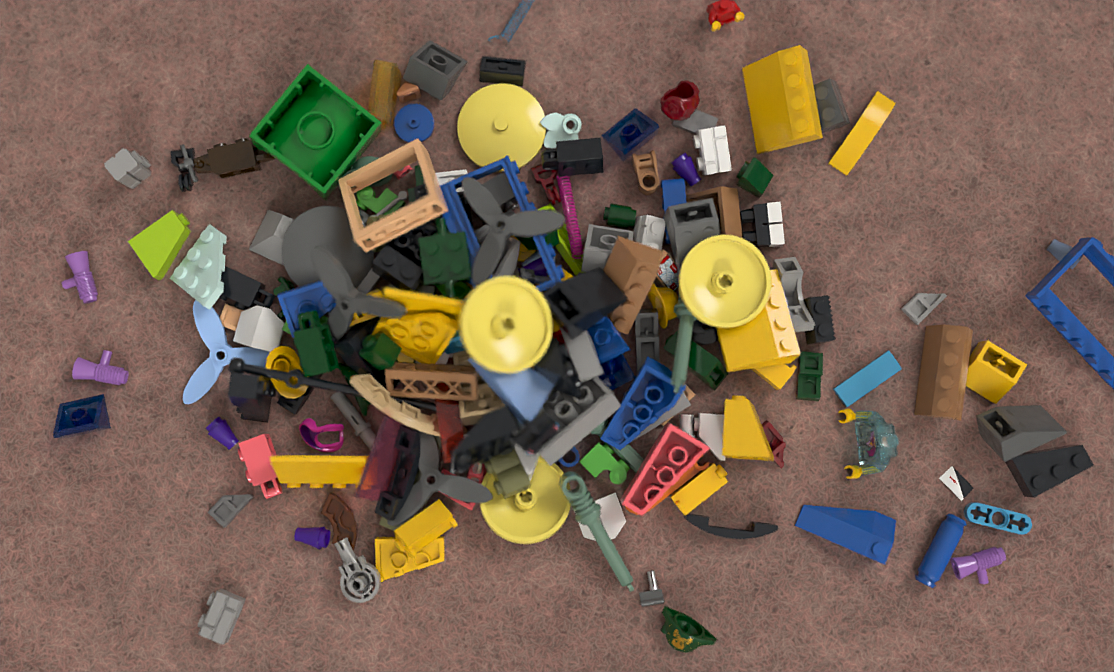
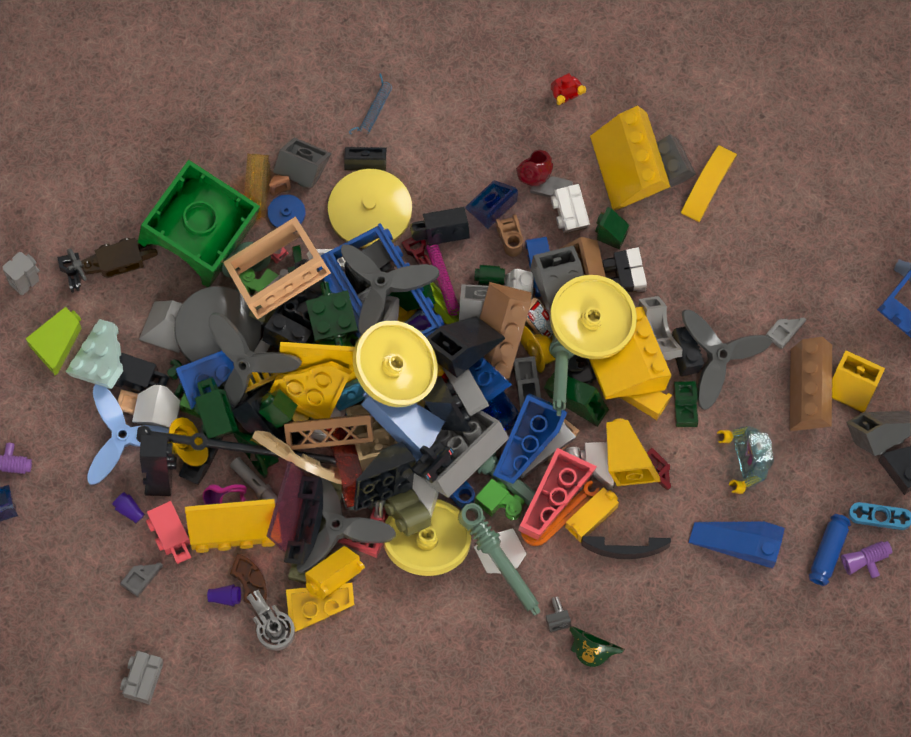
camera: 10 degrees left, 15 degrees down
(558, 130) = (422, 203): light aqua plate -> none
(686, 169) = (546, 227): dark purple cone -> none
(850, 329) = (718, 355): none -> dark grey piece
(867, 378) = (741, 401): dark azure tile -> none
(956, 483) = (838, 489): sticker -> none

